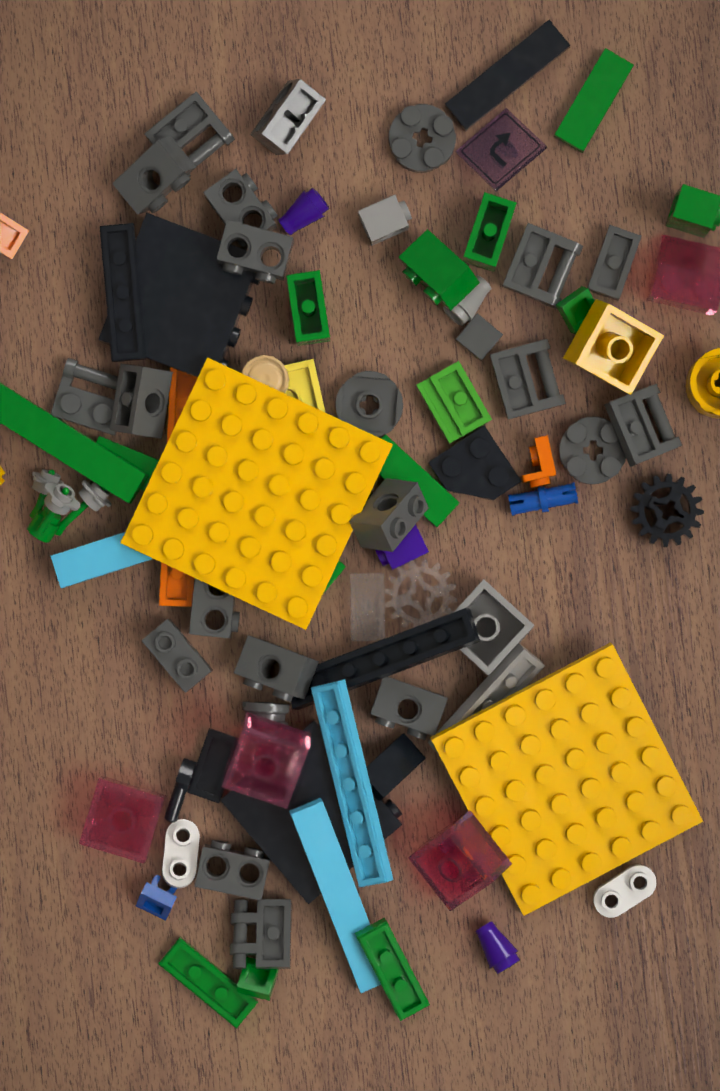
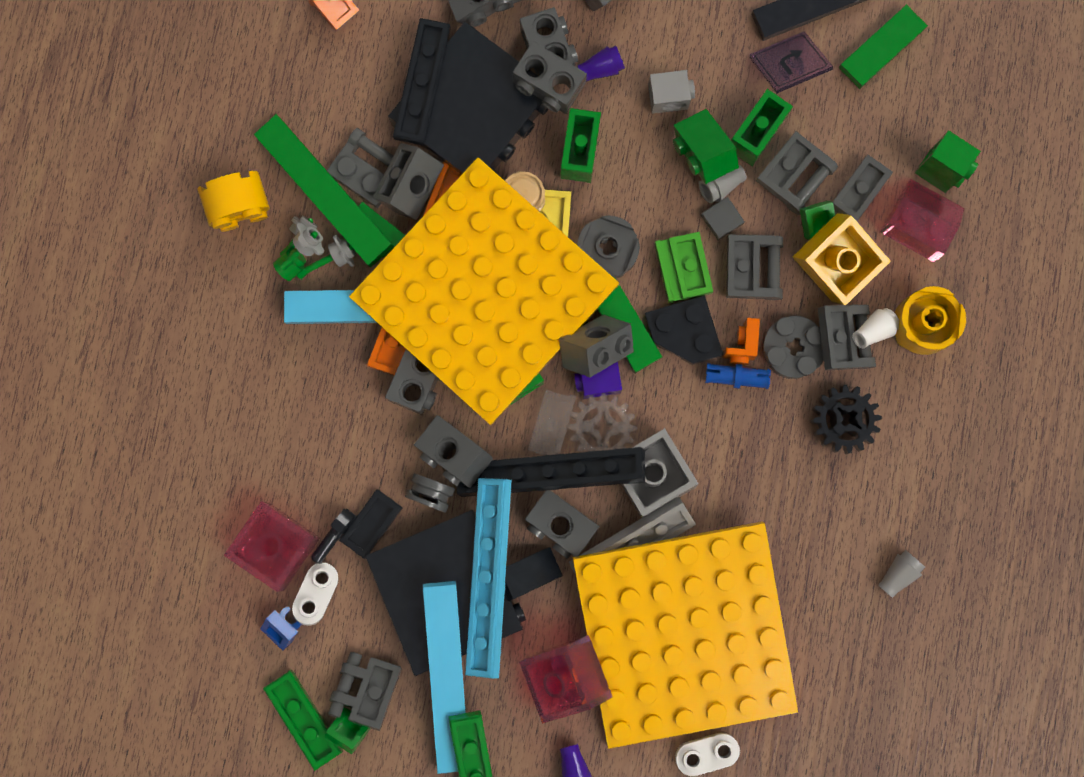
camera: 20 degrees right, 5 degrees down
(177, 655) = (368, 414): dark grey brick -> none
(231, 879) = (353, 632): dark grey brick -> none
(266, 760) = (416, 531): clear pink brick -> none
(432, 154) = (723, 17): dark grey plate -> none
(672, 405) = (877, 327): none -> white cone

